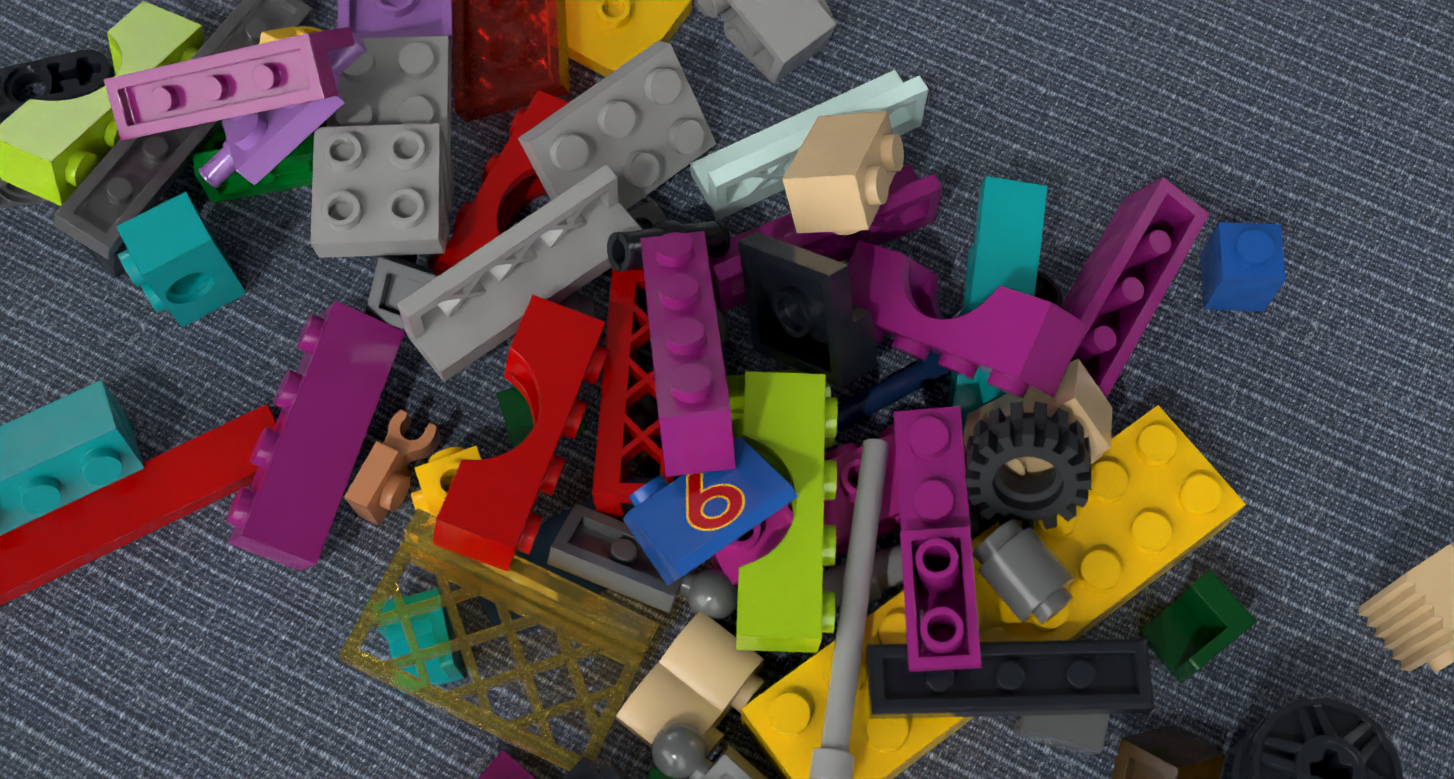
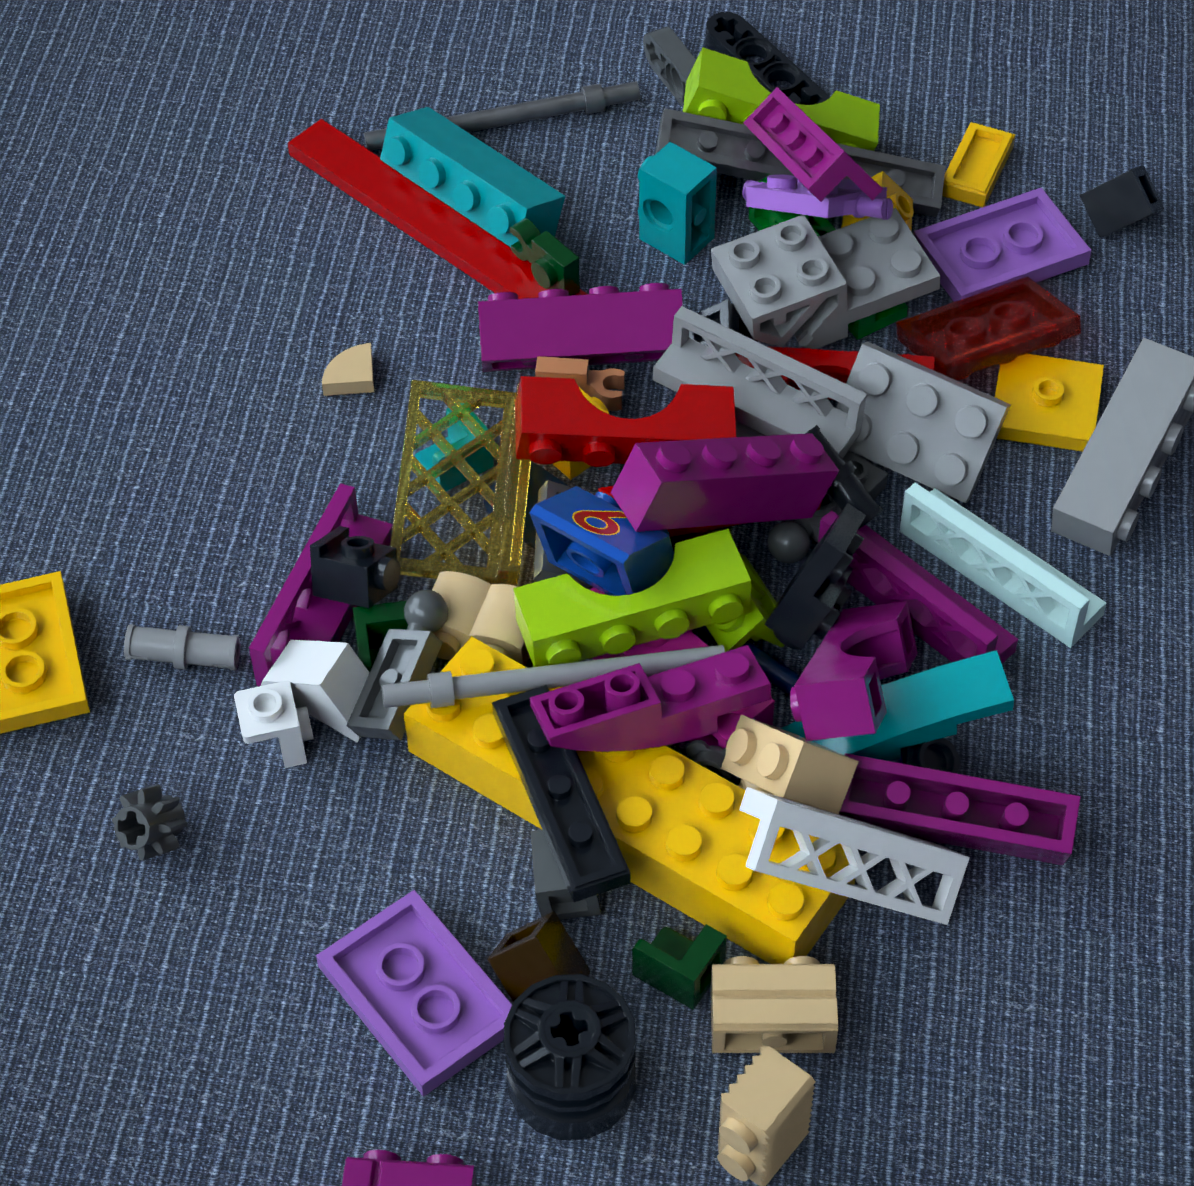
camera: 70 degrees right, 15 degrees down
(197, 433) = (550, 260): none -> dark green plate
(233, 727) = (350, 372): none -> tan tile
(843, 172) = (950, 556): tan brick -> none
(1024, 572) = (648, 768): dark grey brick -> none
(1028, 436) = (735, 736): black tyre -> none
(1166, 414) = (853, 835): none -> white fence
(1242, 266) = (1044, 910): blue brick -> none
(1281, 554) = (773, 1006): none -> tan brick

